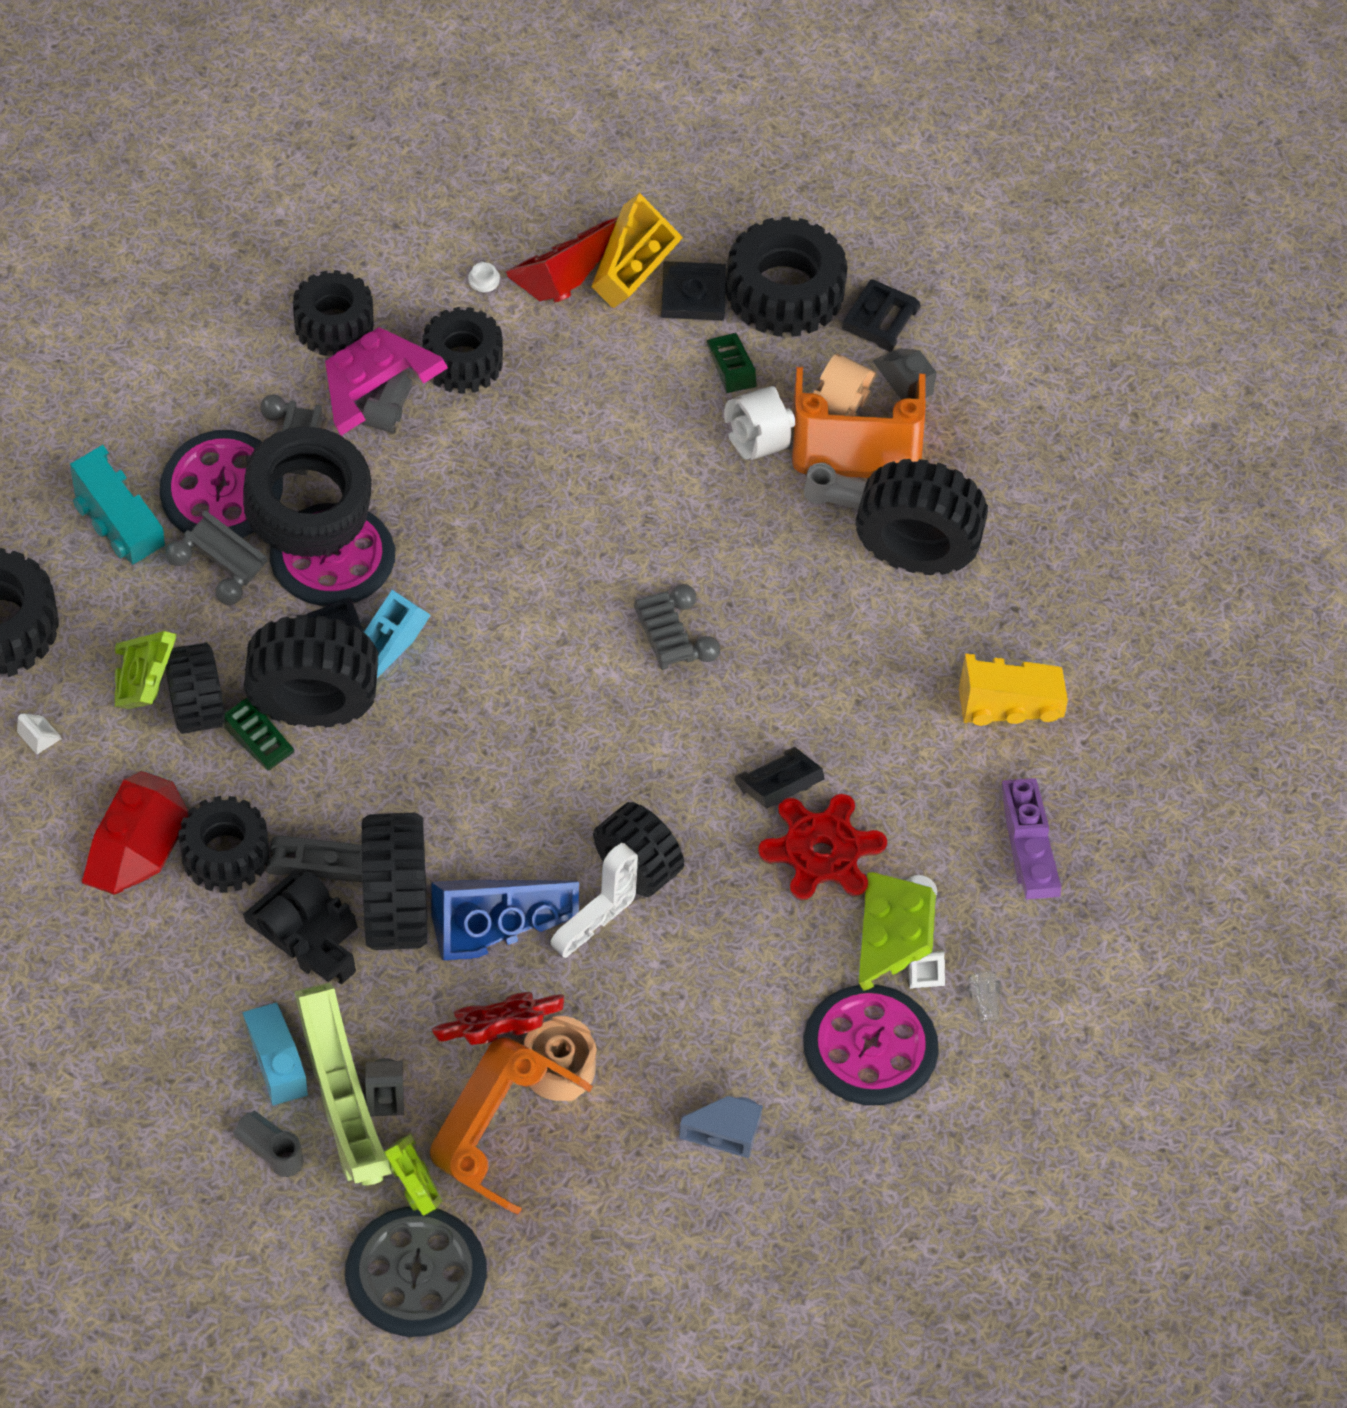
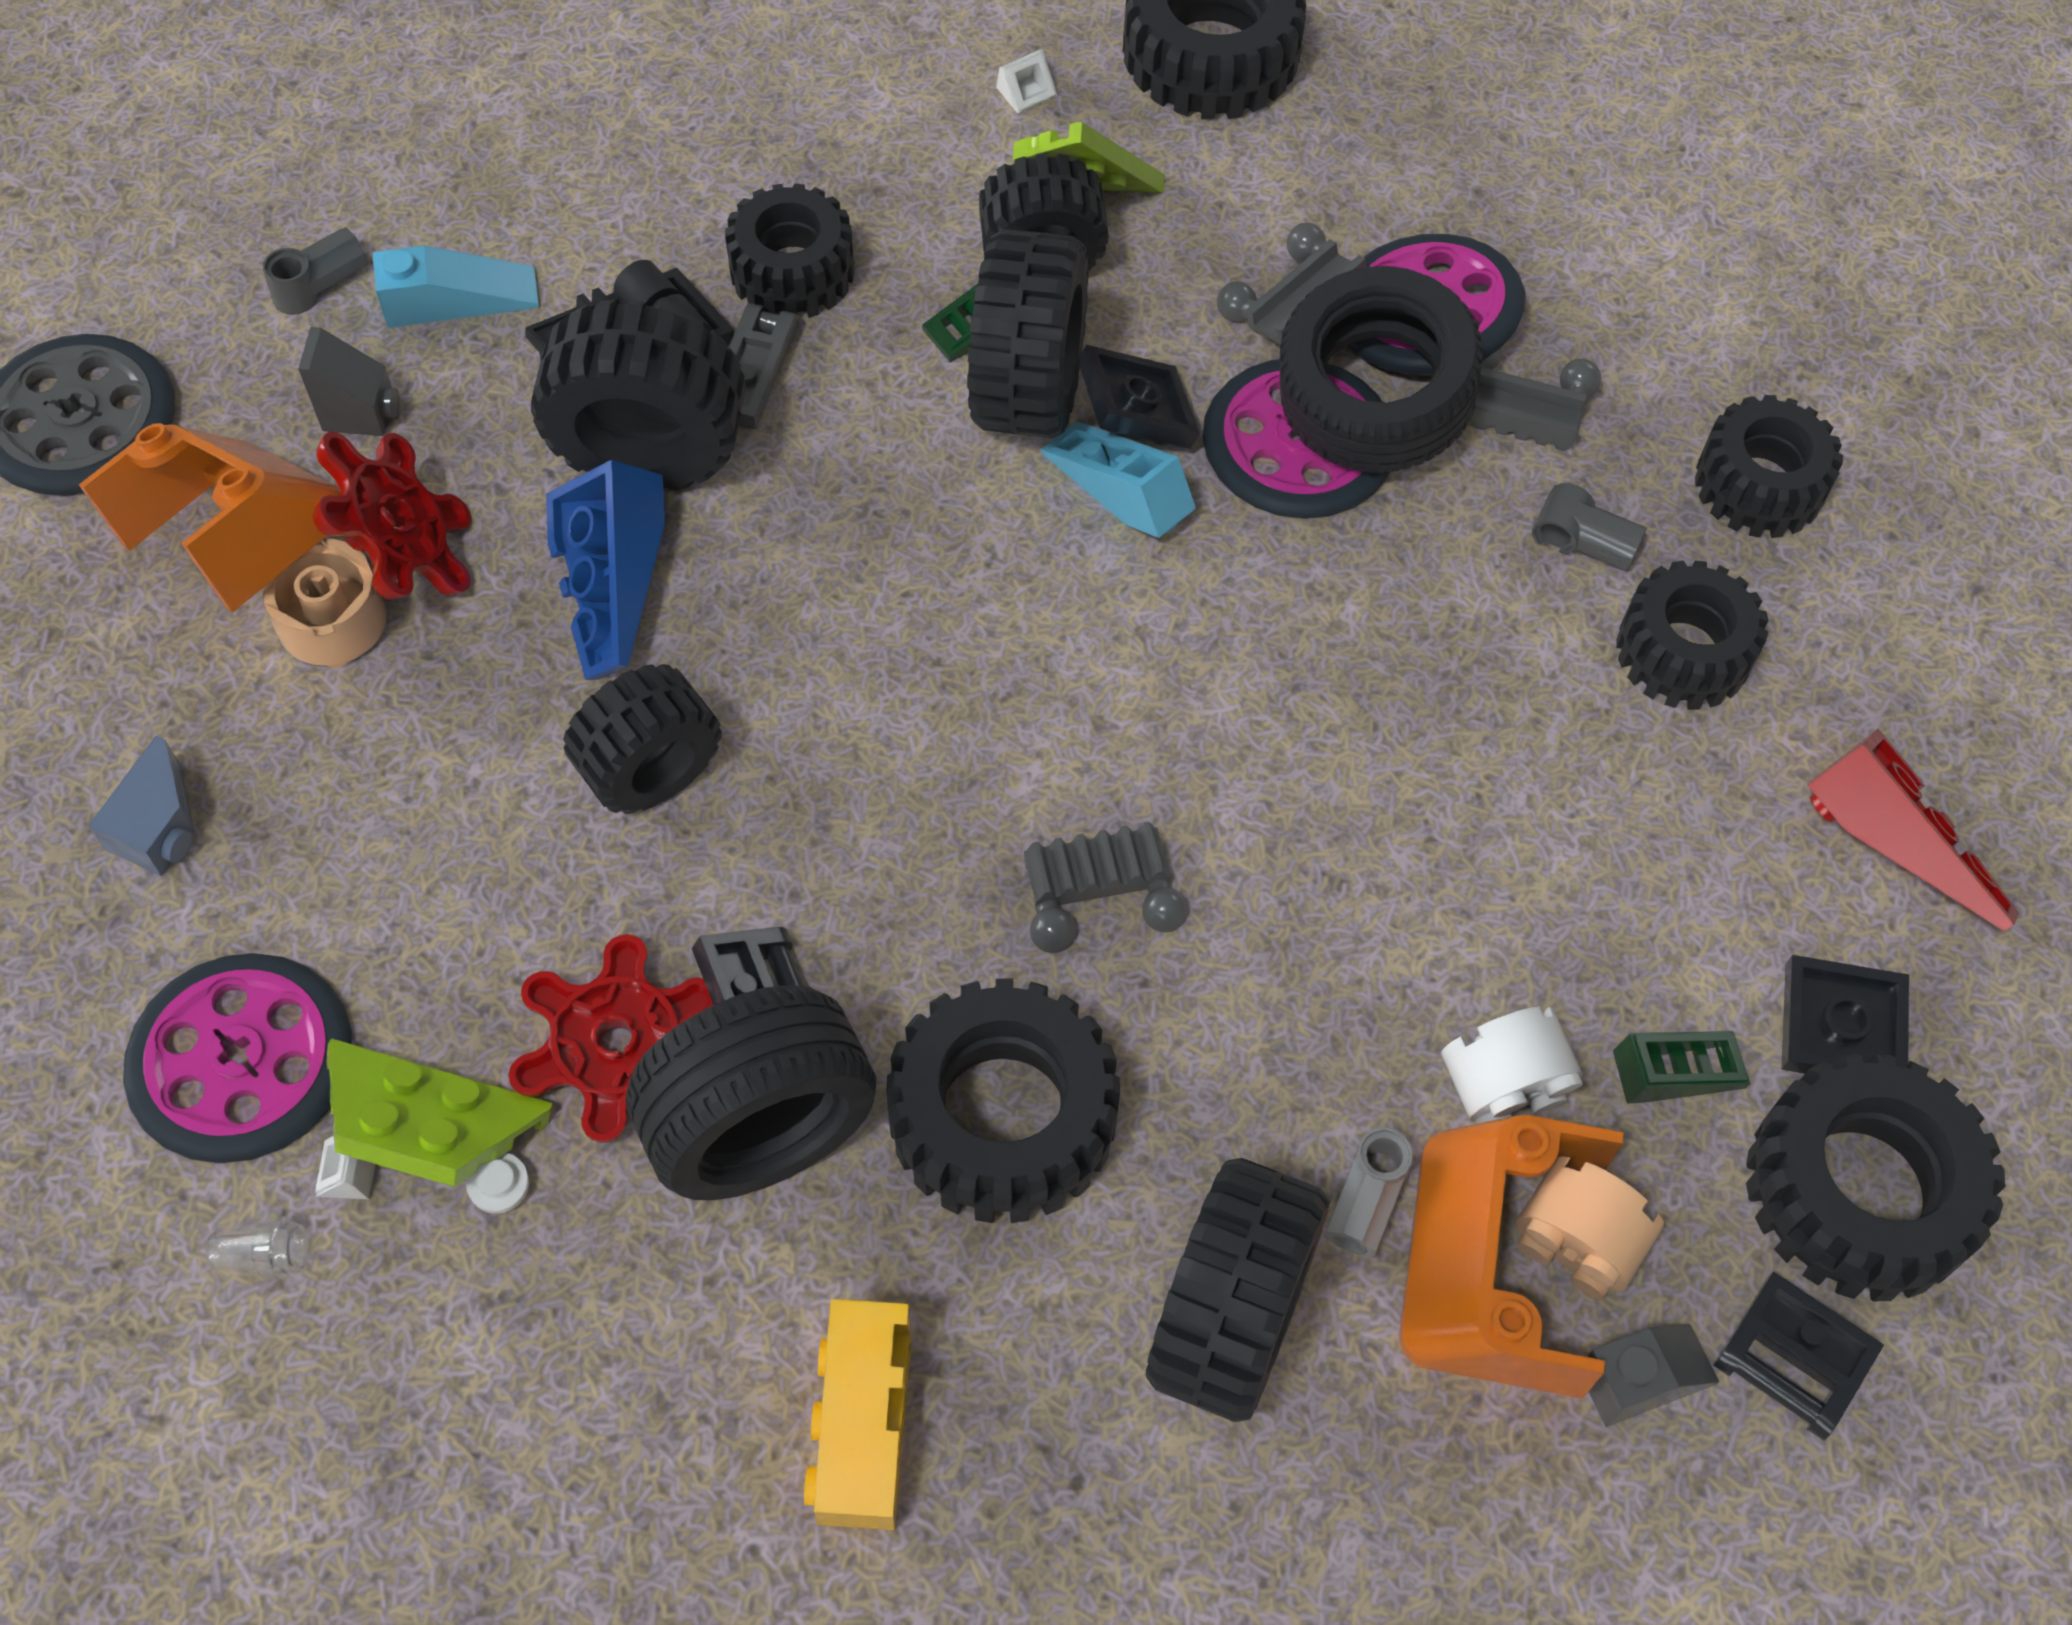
camera: 100 degrees right, 5 degrees up
(113, 508) = (1391, 169): teal wedge -> none
(135, 833) = (853, 160): red wedge -> none
(341, 1092) = (264, 341): yellowish green arch -> none
(368, 365) = (1648, 491): dark pink wing -> none
(414, 1174) = (170, 377): lime wing -> none
(484, 277) = (1864, 696): white plate -> none
(617, 892) = (562, 671): white beam -> none
(634, 250) = (1916, 917): yellow wedge -> none
(820, 682) = (1010, 1026): none -> black tyre
(864, 741) = (750, 1092): none -> black tyre
(1029, 839) = (544, 1390): medium lavender slope -> none

